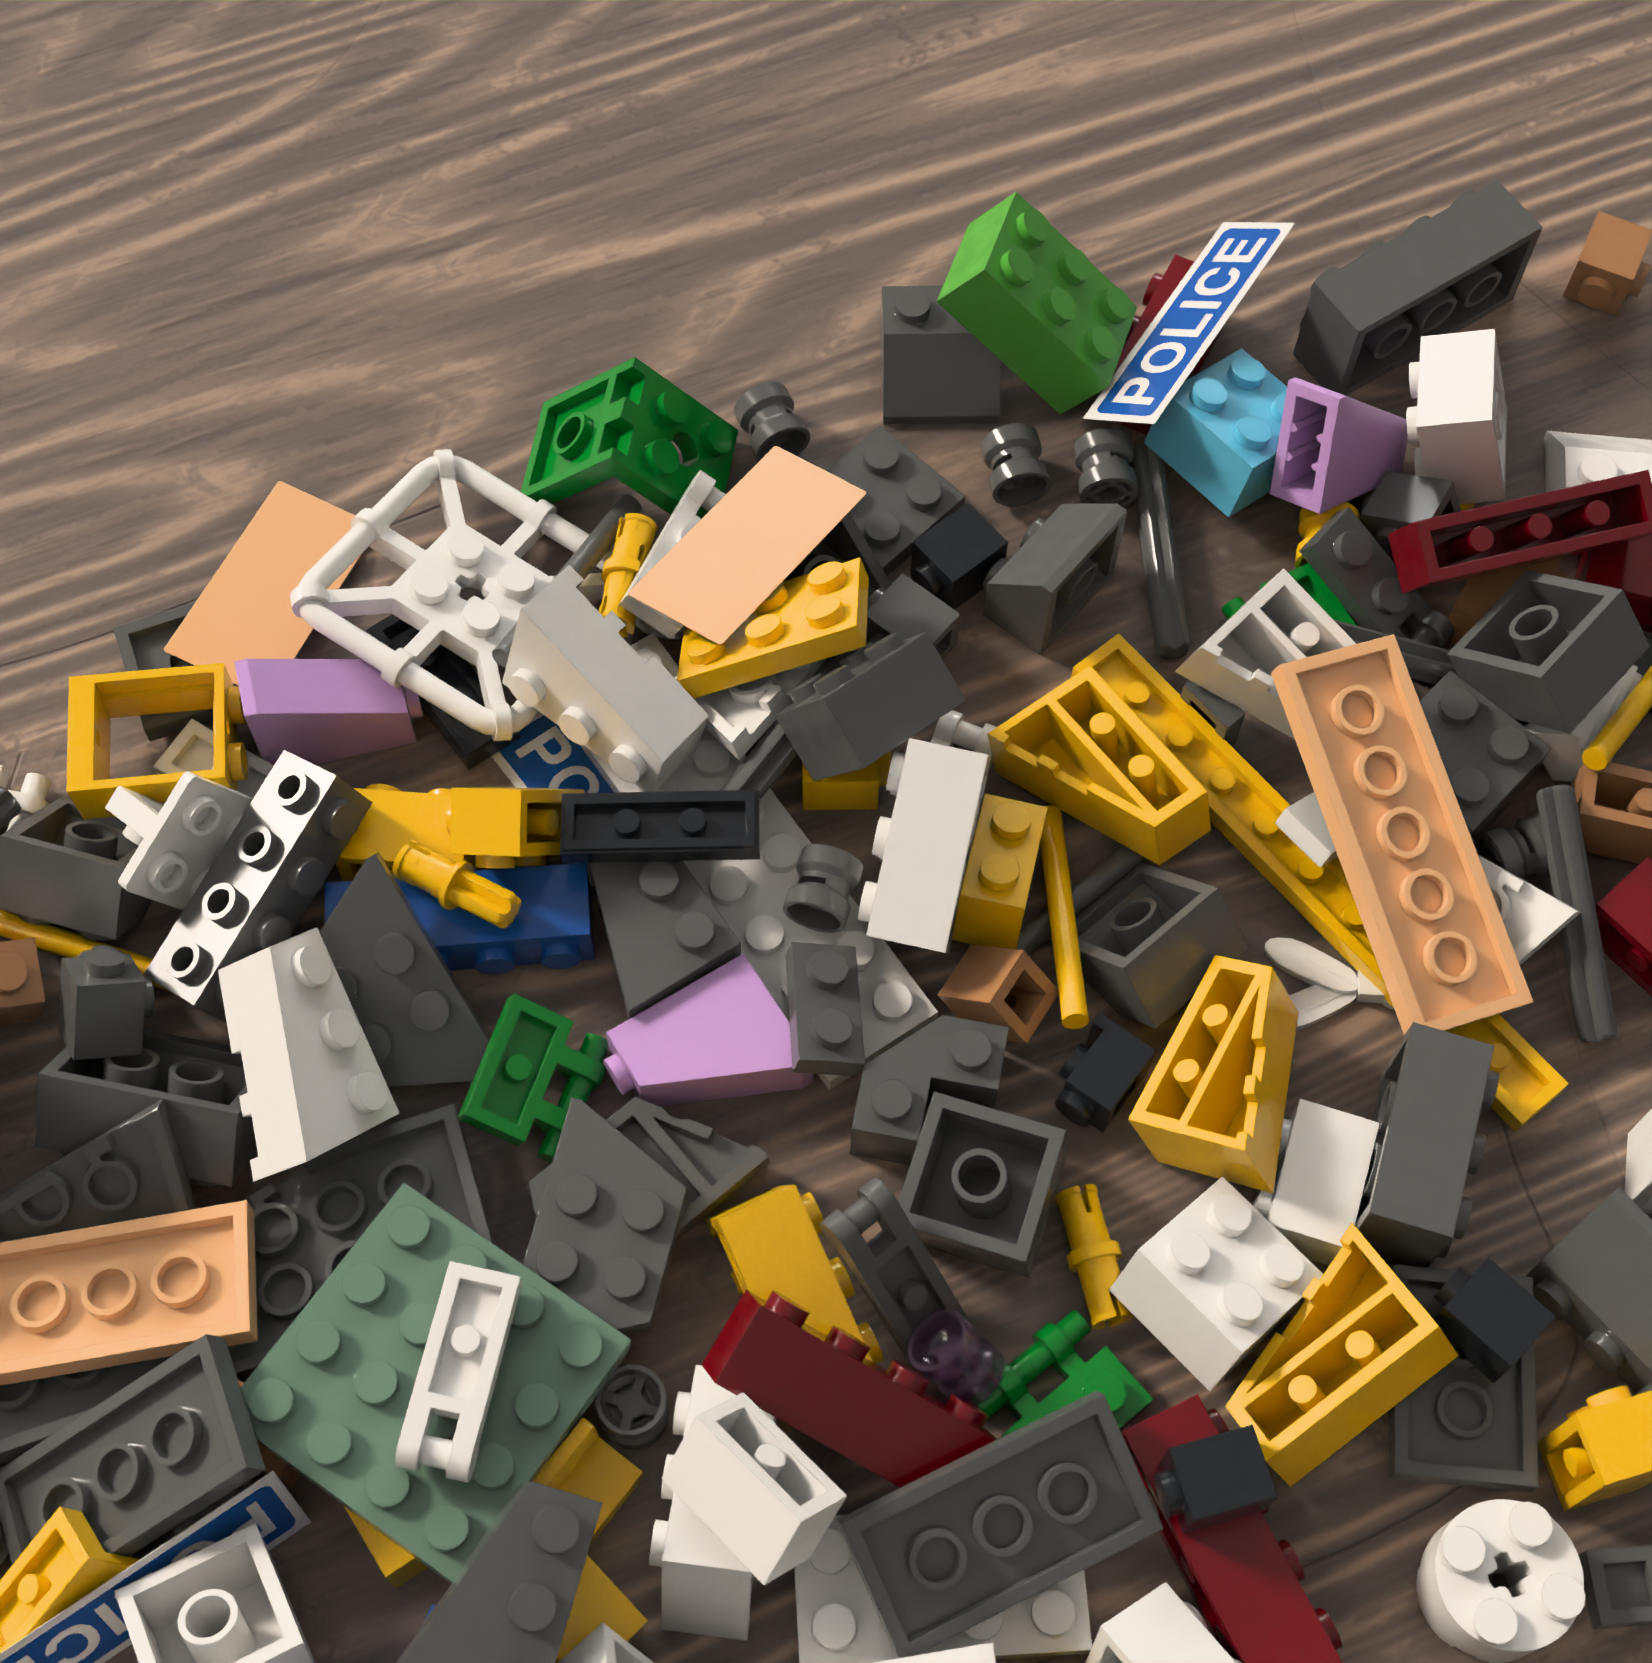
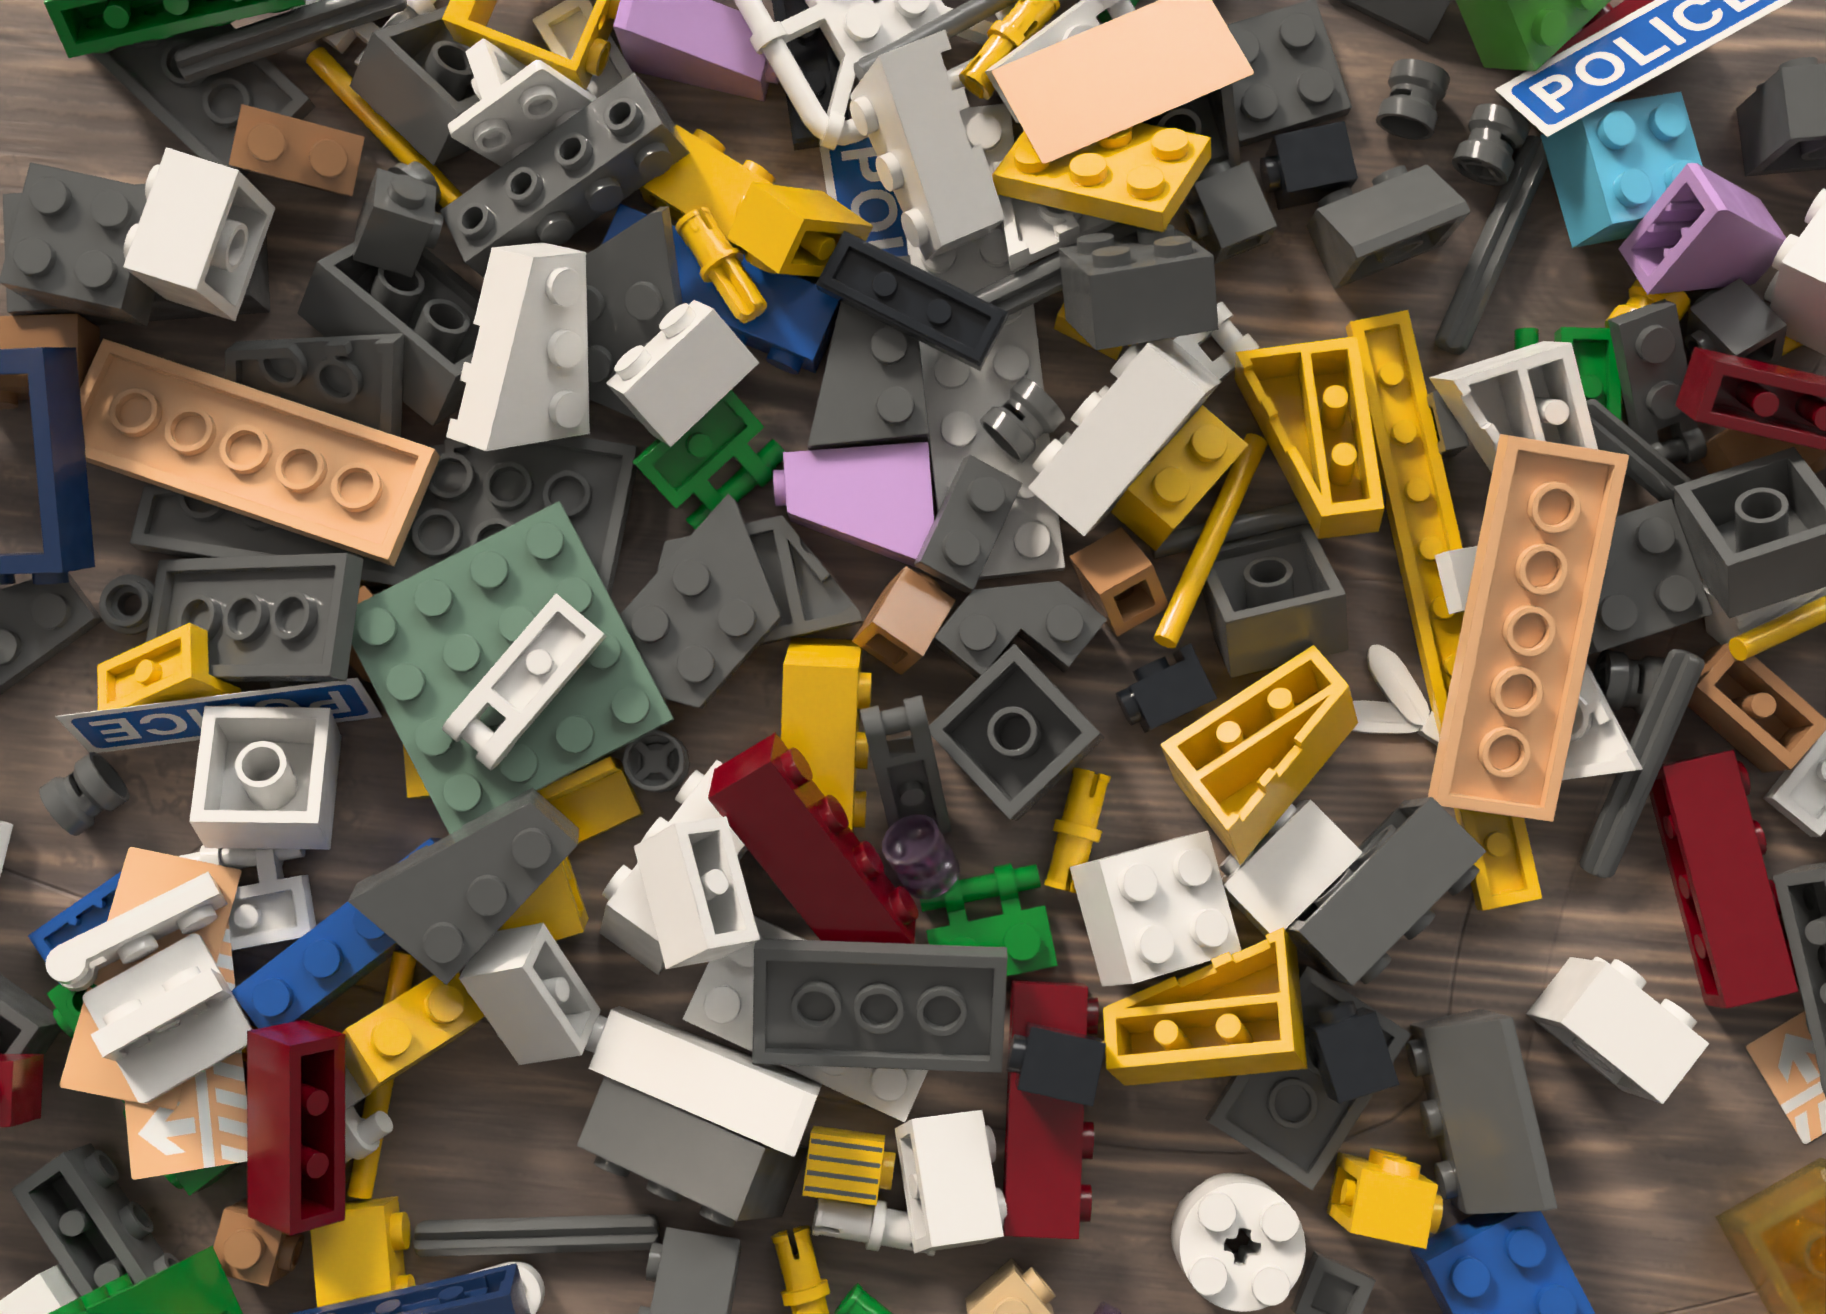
camera: 30 degrees right, 20 degrees up
(466, 999) = (681, 371): none -> white brick
(812, 1120) = (904, 620): none -> medium nougat brick

